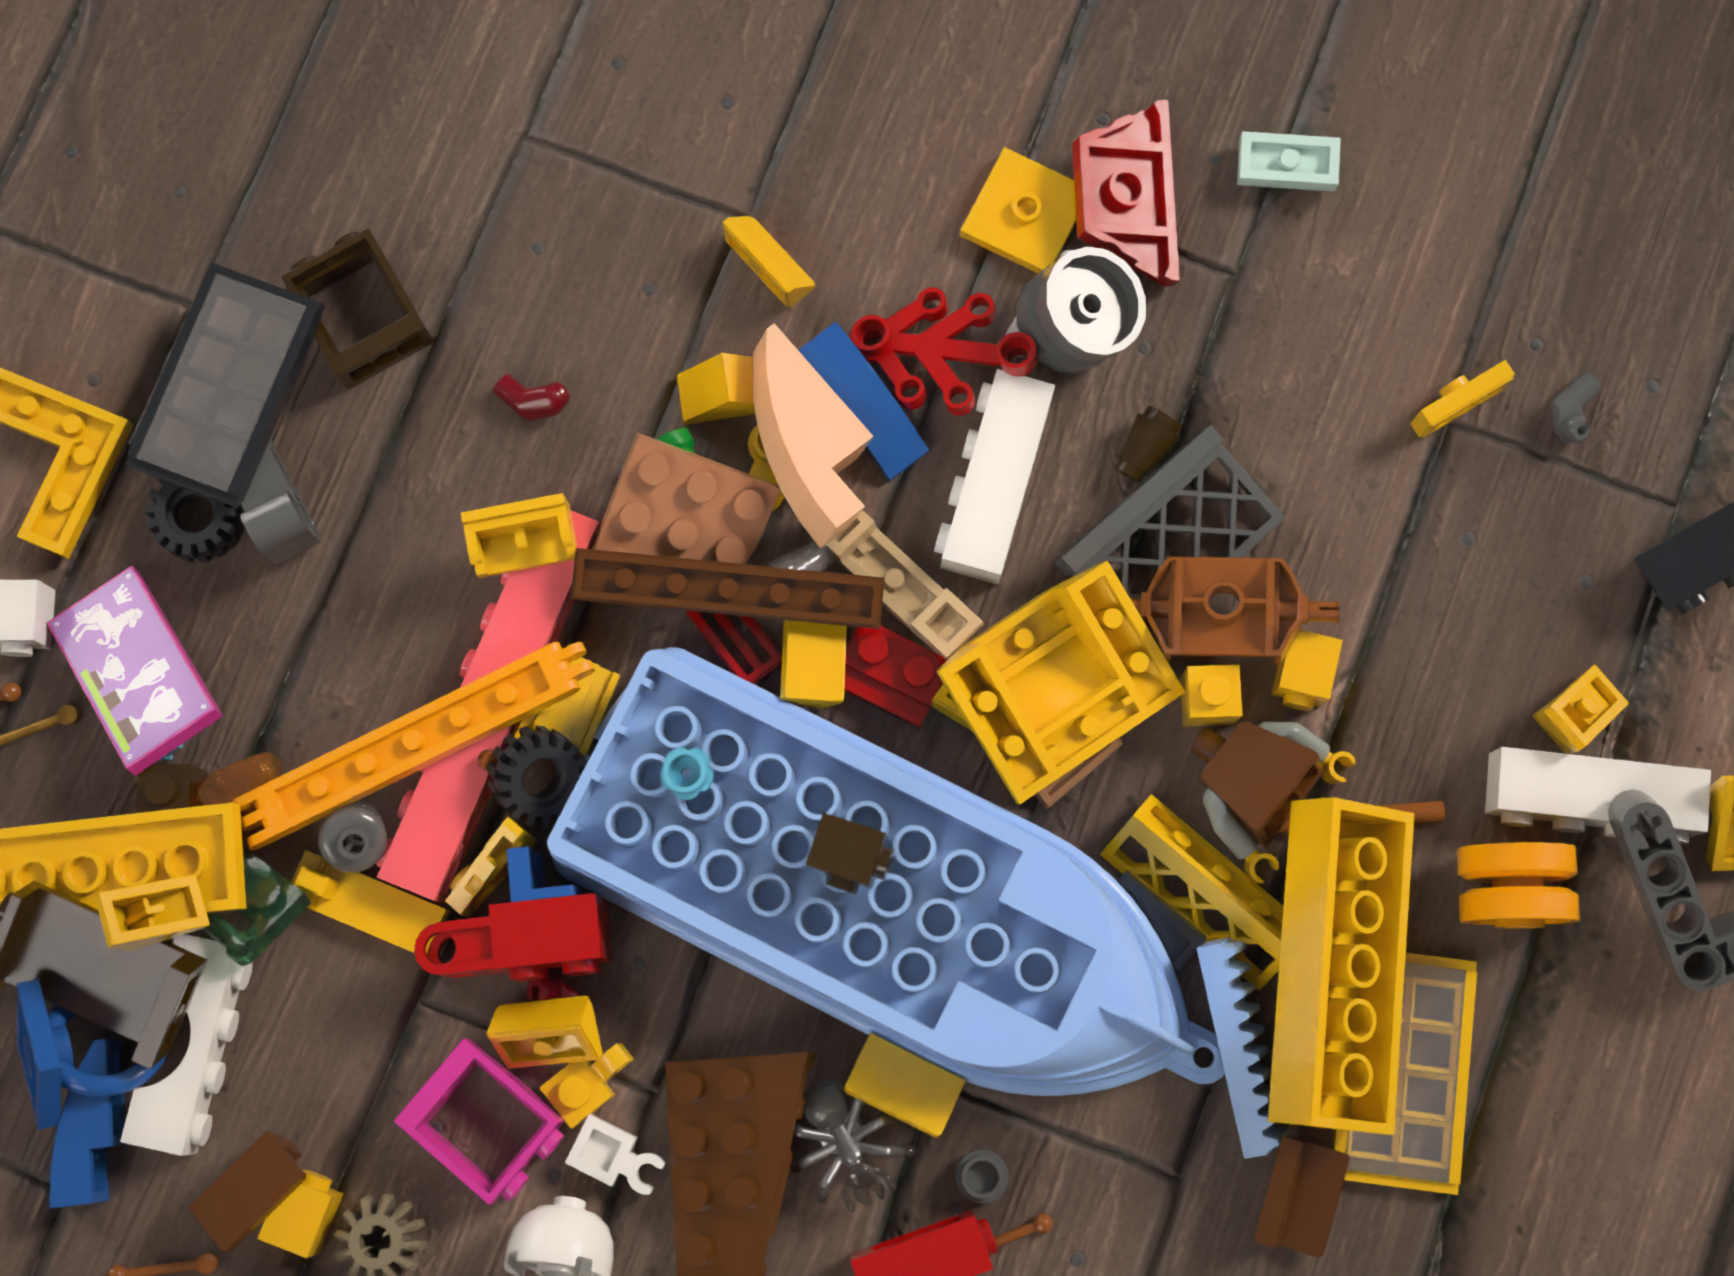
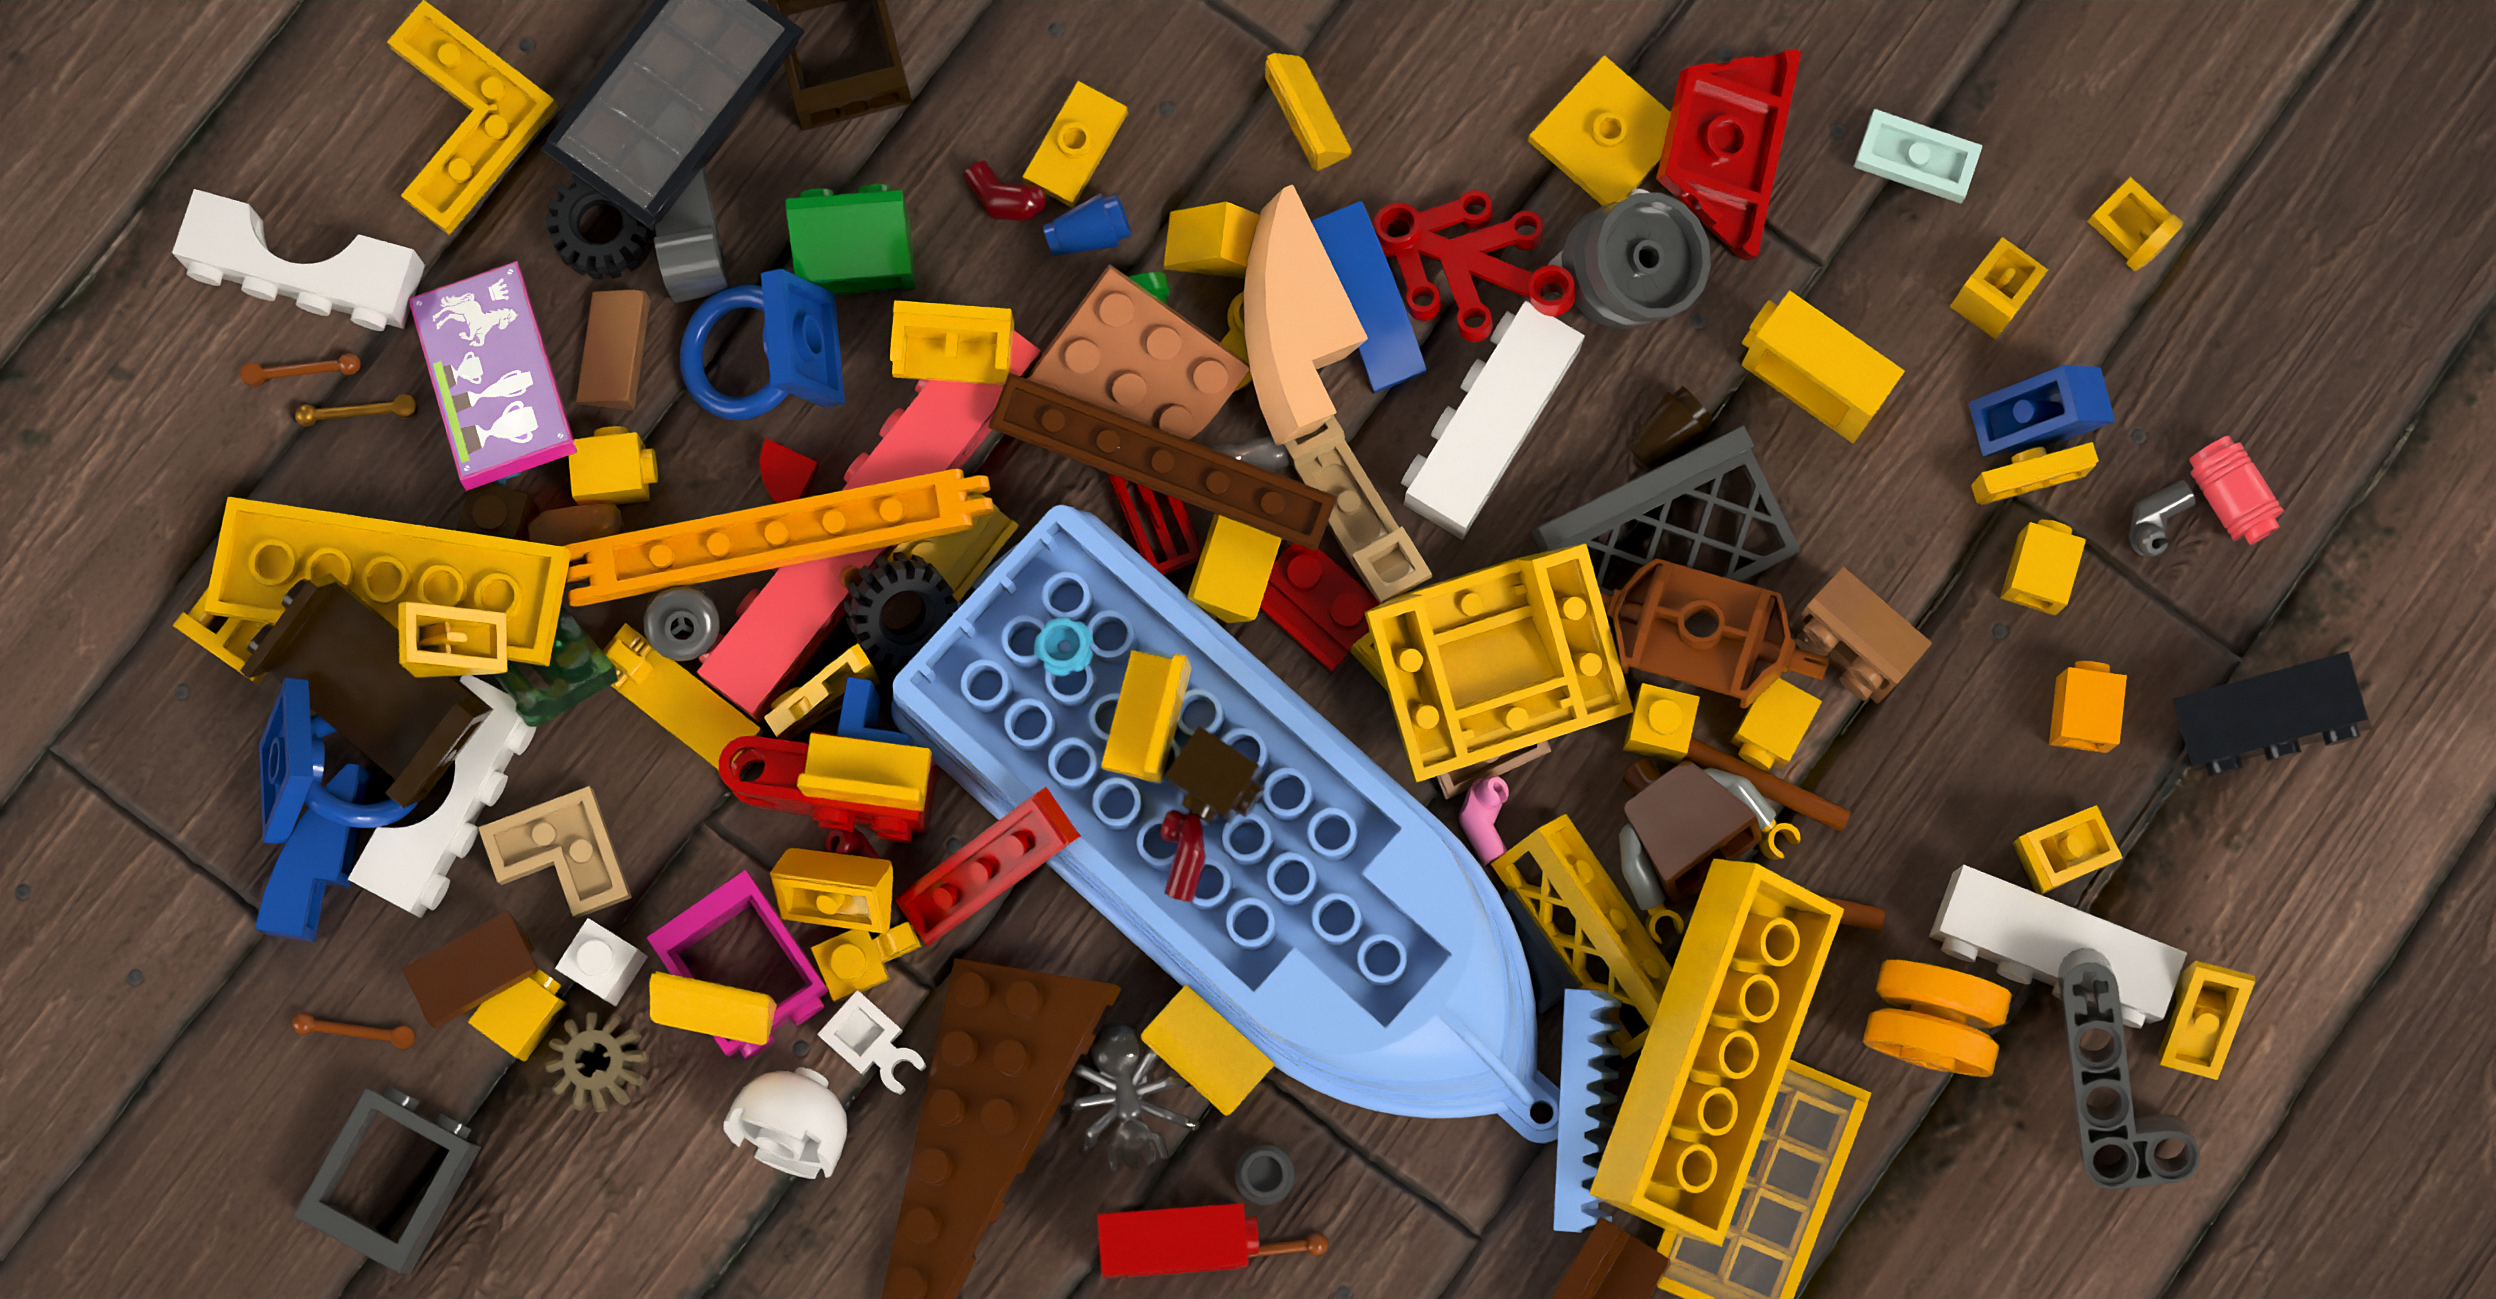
camera: 10 degrees right, 0 degrees up
(235, 618) = (613, 349): none -> medium nougat slope
(258, 720) = (612, 468): none -> yellow brick
(304, 1049) = (561, 834): none -> tan plate
(361, 1152) = (601, 962): none -> white brick
(389, 569) = (797, 340): none -> blue tile
(409, 683) = (785, 472): none -> red tile
(411, 472) = (852, 239): none -> green slope
(465, 1169) = (711, 1008): none -> yellow slope
(544, 928) = (866, 772): none -> yellow panel
(581, 339) = (1075, 144): none -> yellow plate
(611, 405) = (1089, 227): none -> blue cone
(672, 979) = (987, 866): none -> red tile
(775, 813) = (1147, 716): none -> yellow panel
(846, 926) = (1189, 855): none -> dark red arm
(1078, 815) = (1479, 816): none -> bright pink arm
(1260, 357) = (1819, 365): none -> yellow window
(1318, 723) = (1770, 785): none -> dark orange bar
(1359, 574) = (1860, 636): none -> medium nougat slope
(1387, 254) = (1998, 288): none -> yellow slope
(1453, 345) = (2042, 410): none -> blue slope
(1484, 169) = (2135, 224): none -> yellow tile
(1492, 475) = (2043, 566): none -> yellow brick
(1564, 584) = (2088, 707): none -> light orange brick
(1633, 368) = (2236, 490): none -> coral head

